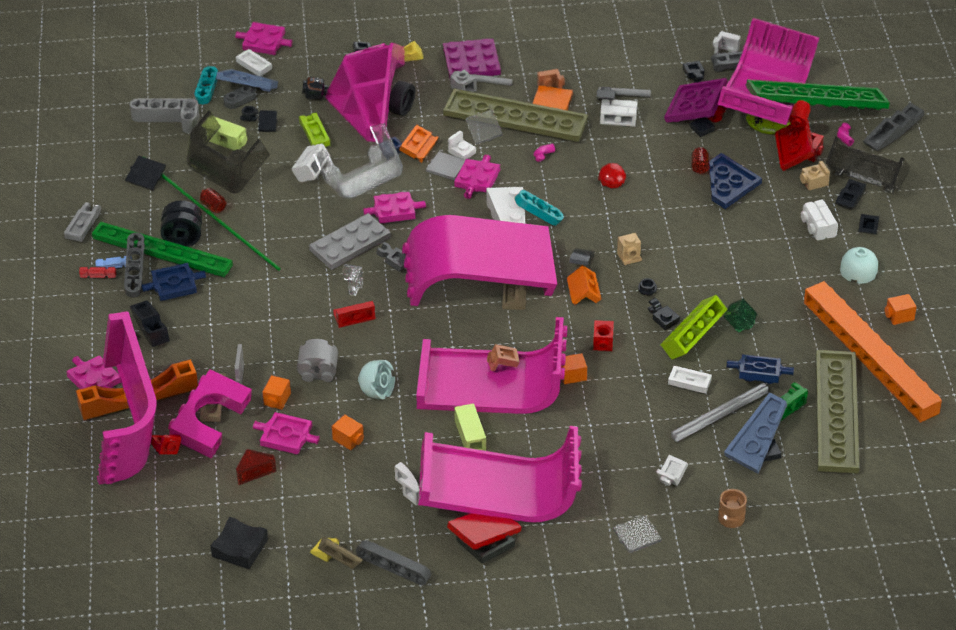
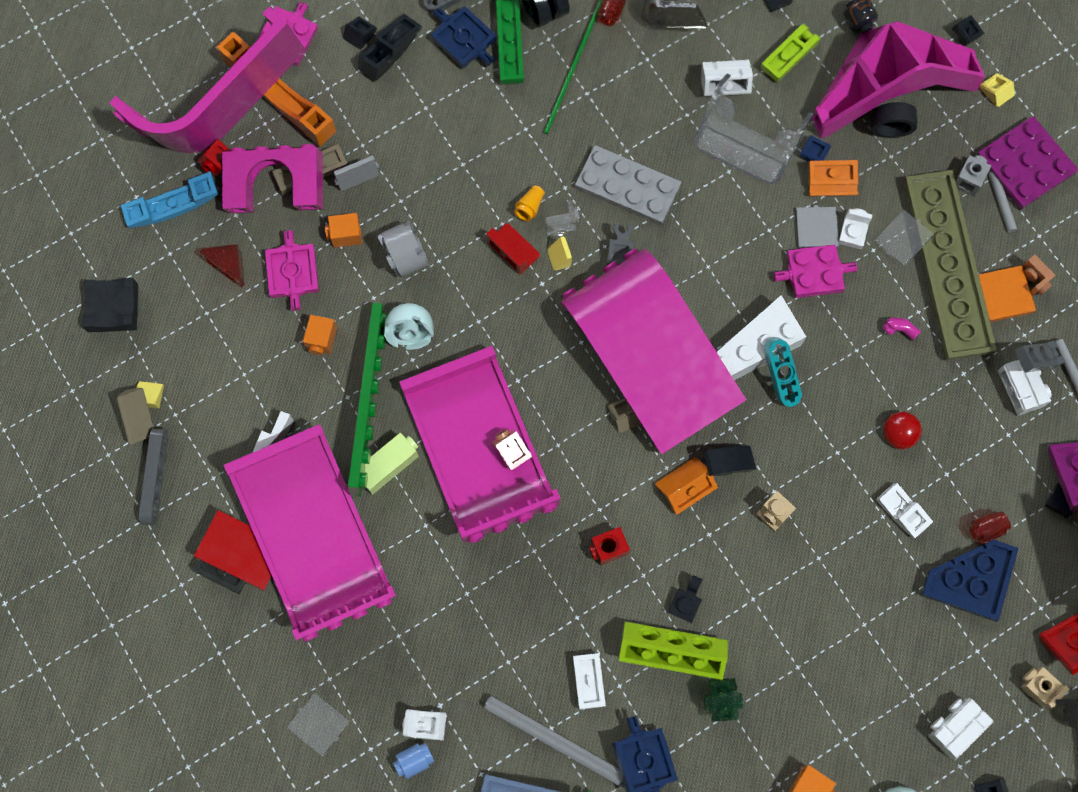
camera: 65 degrees right, 30 degrees up
(181, 480) = (170, 204): none -> dark azure slope
(329, 292) = (529, 204): none -> light orange cone
(377, 289) = (560, 254): none -> light yellow slope
(394, 207) = (708, 205): dark pink plate -> none
(418, 415) = (367, 407): none -> green plate
(575, 369) = (537, 535): orange brick -> none
(647, 287) = (724, 561): black plate -> none
(669, 195) = (904, 511): none -> white slope
(693, 486) = (413, 760): none -> medium blue brick
(851, 194) = (1037, 748): black slope -> none

